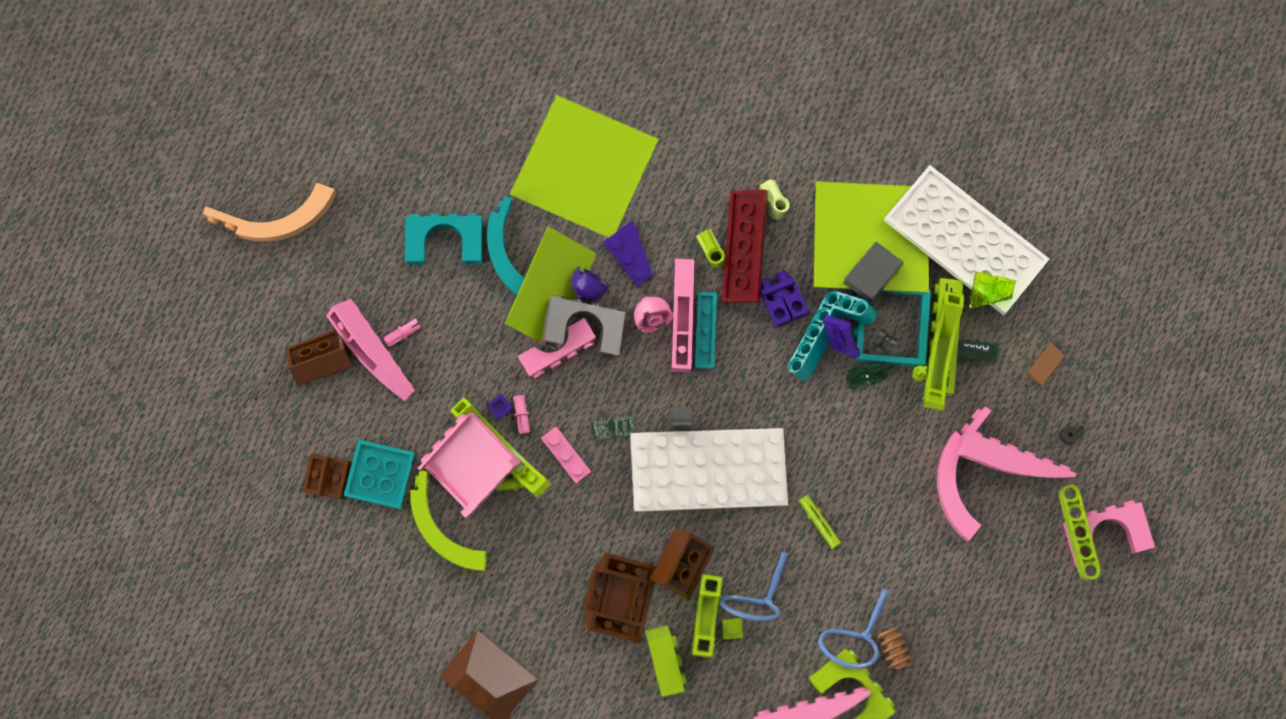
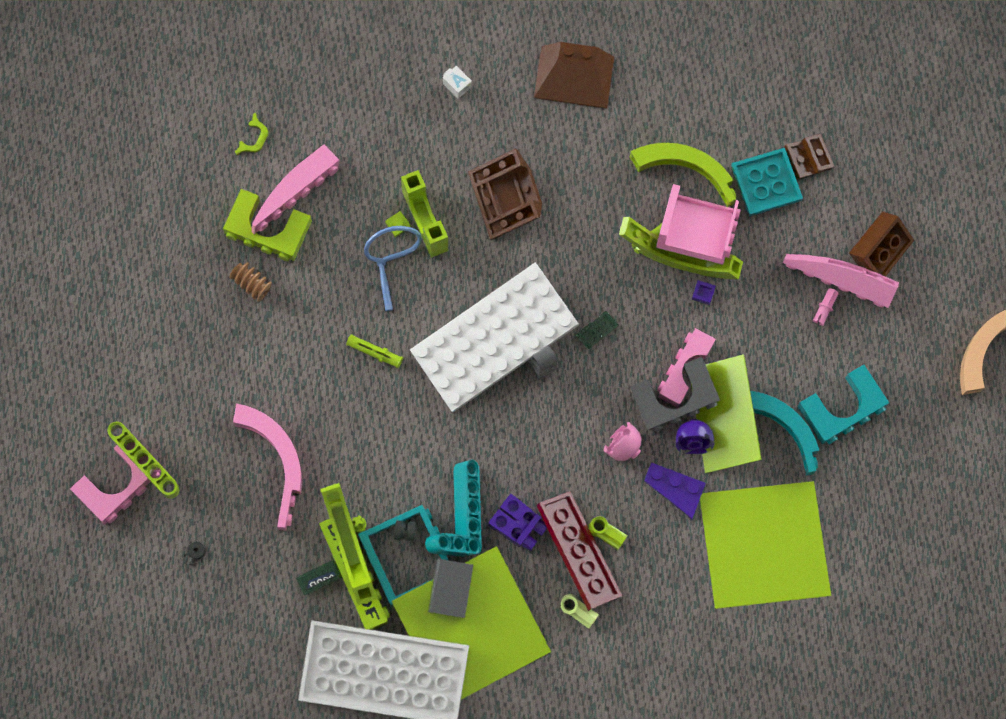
camera: 145 degrees right, 5 degrees down
(521, 414) = (681, 297): bright pink axle -> none
(566, 455) = (623, 285): bright pink plate -> none
(666, 661) = (439, 165): lime wedge -> none
(682, 563) = (471, 250): reddish brown slope -> none
(683, 315) = (596, 457): bright pink slope -> none
(705, 330) = (568, 458): teal plate -> none
(840, 336) = (446, 512): dark purple plate -> none
(865, 634) = (283, 281): medium blue piece -> none
(868, 373) = (400, 504): clear green slope -> none
(990, 289) = (336, 633): clear neon green slope -> none
(1008, 458) = (237, 492): bright pink slope -> none
(1045, 364) = (250, 601): medium nougat slope -> none

